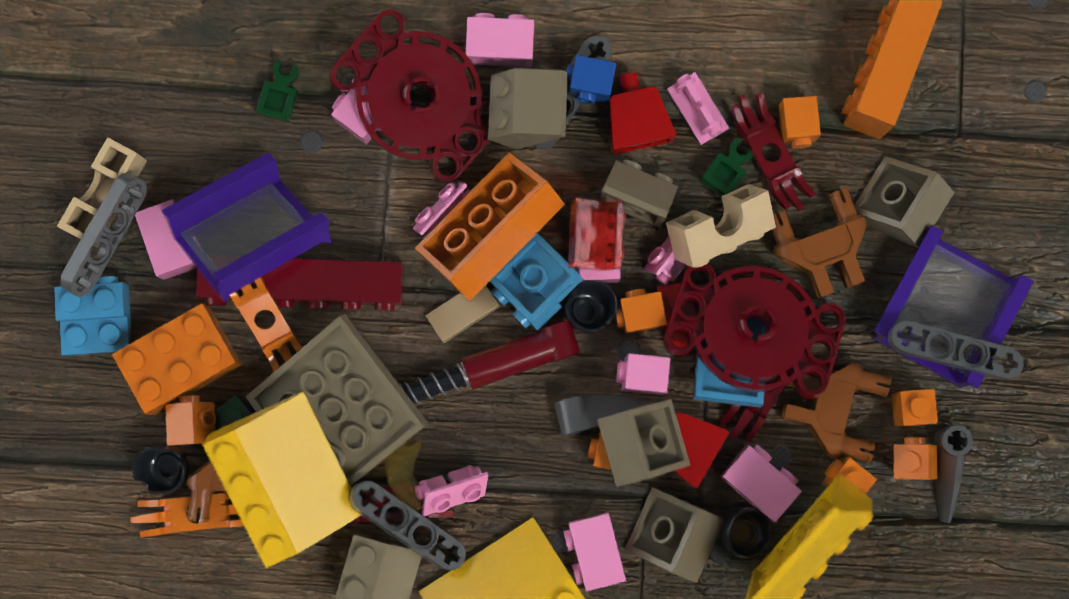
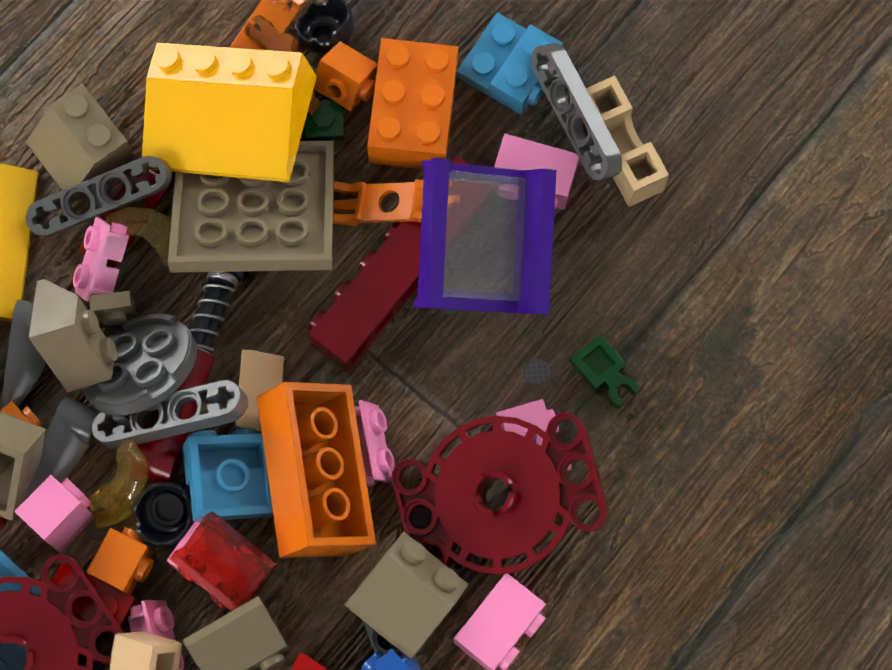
camera: 125 degrees right, 10 degrees down
(478, 453) = (113, 307): none -> dark tan plate
(505, 400) = (150, 365): none -> dark grey tile
(523, 349) = (169, 410): none -> dark grey beam
(523, 455) = (70, 338): none -> dark tan slope
(547, 489) = (23, 360): none -> dark grey piece
(599, 345) = (124, 489): none -> clear yellow piece

